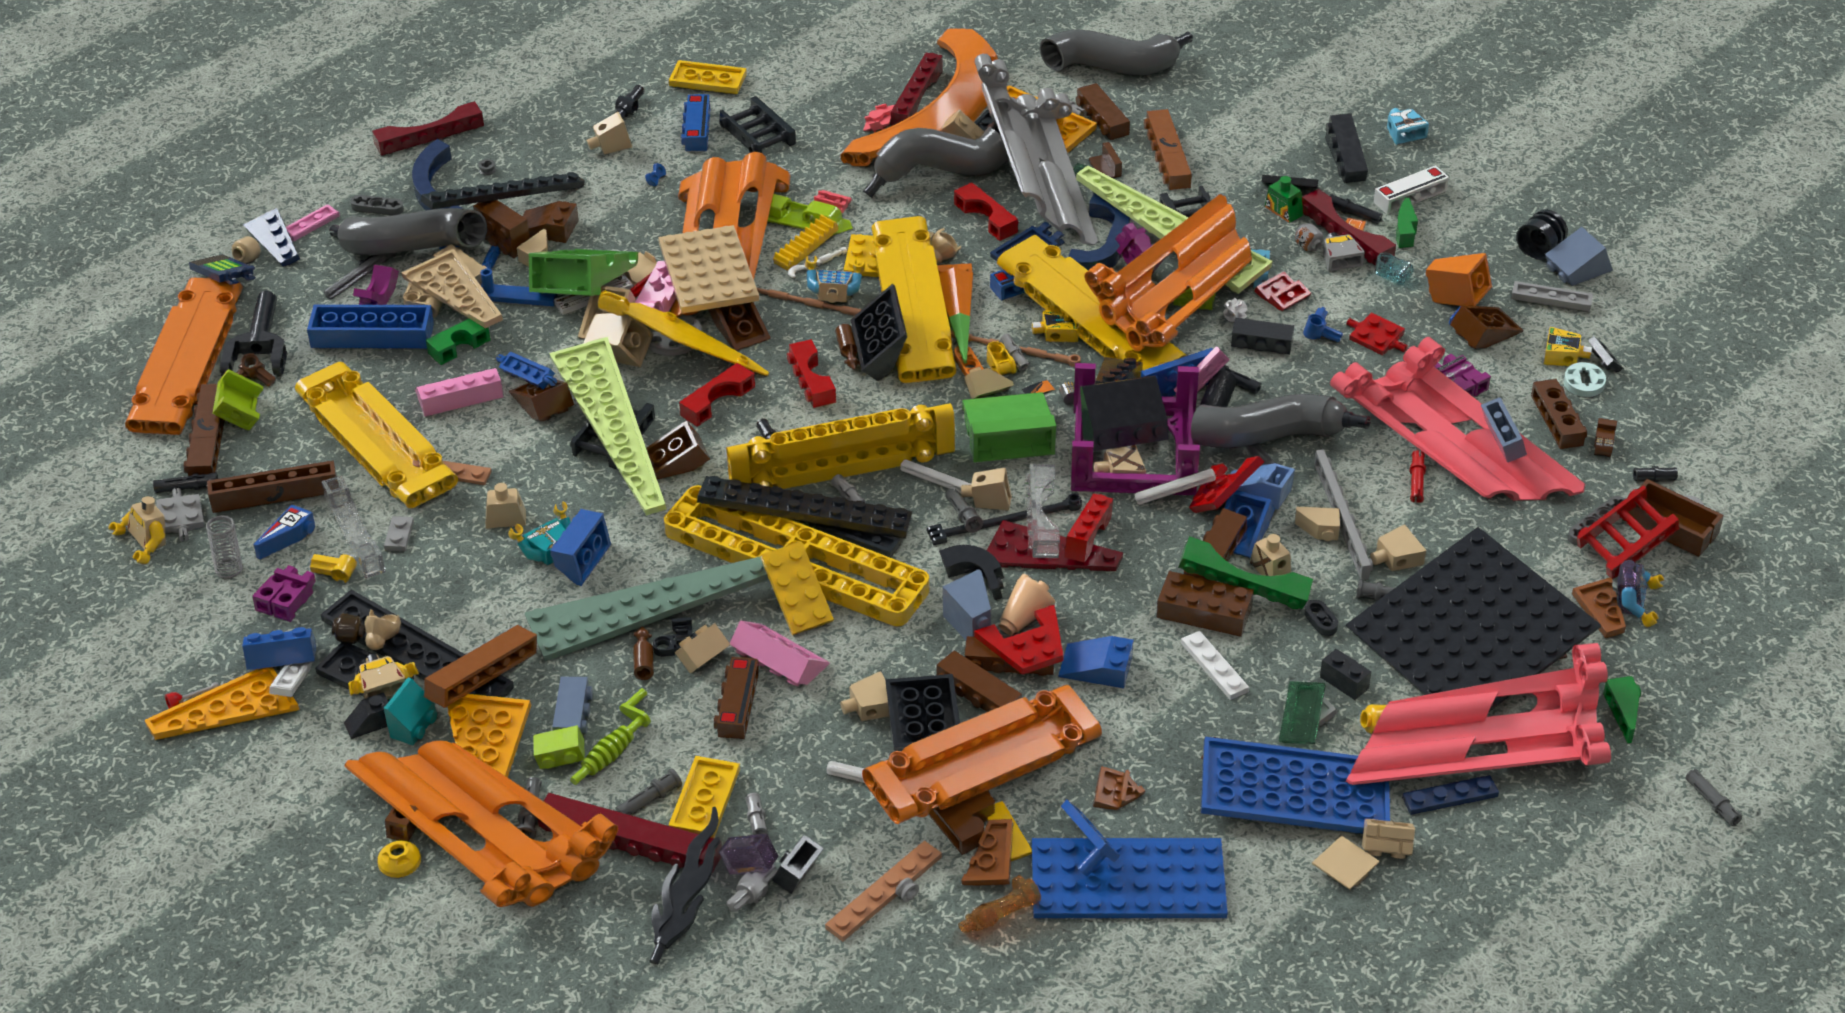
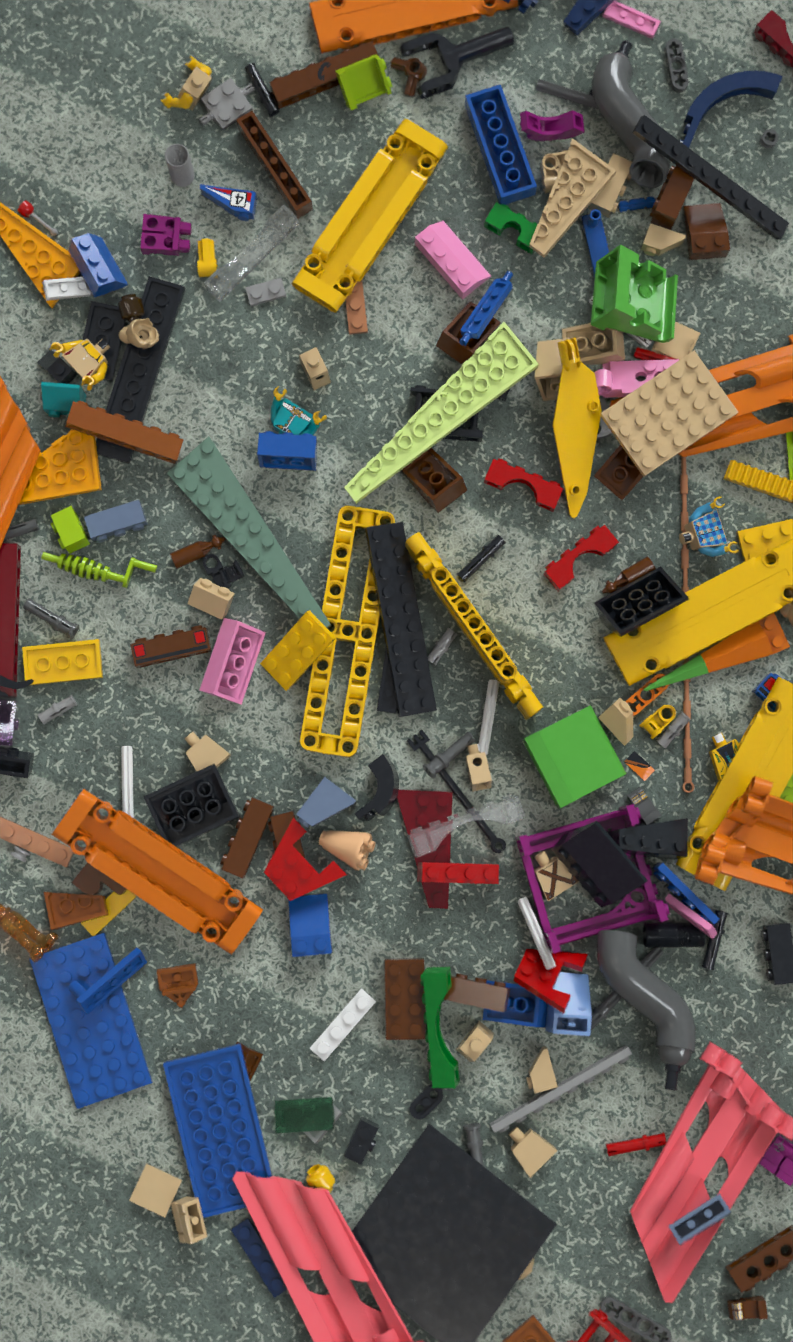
camera: 70 degrees right, 40 degrees up
(821, 260) = (733, 495): white piece -> none

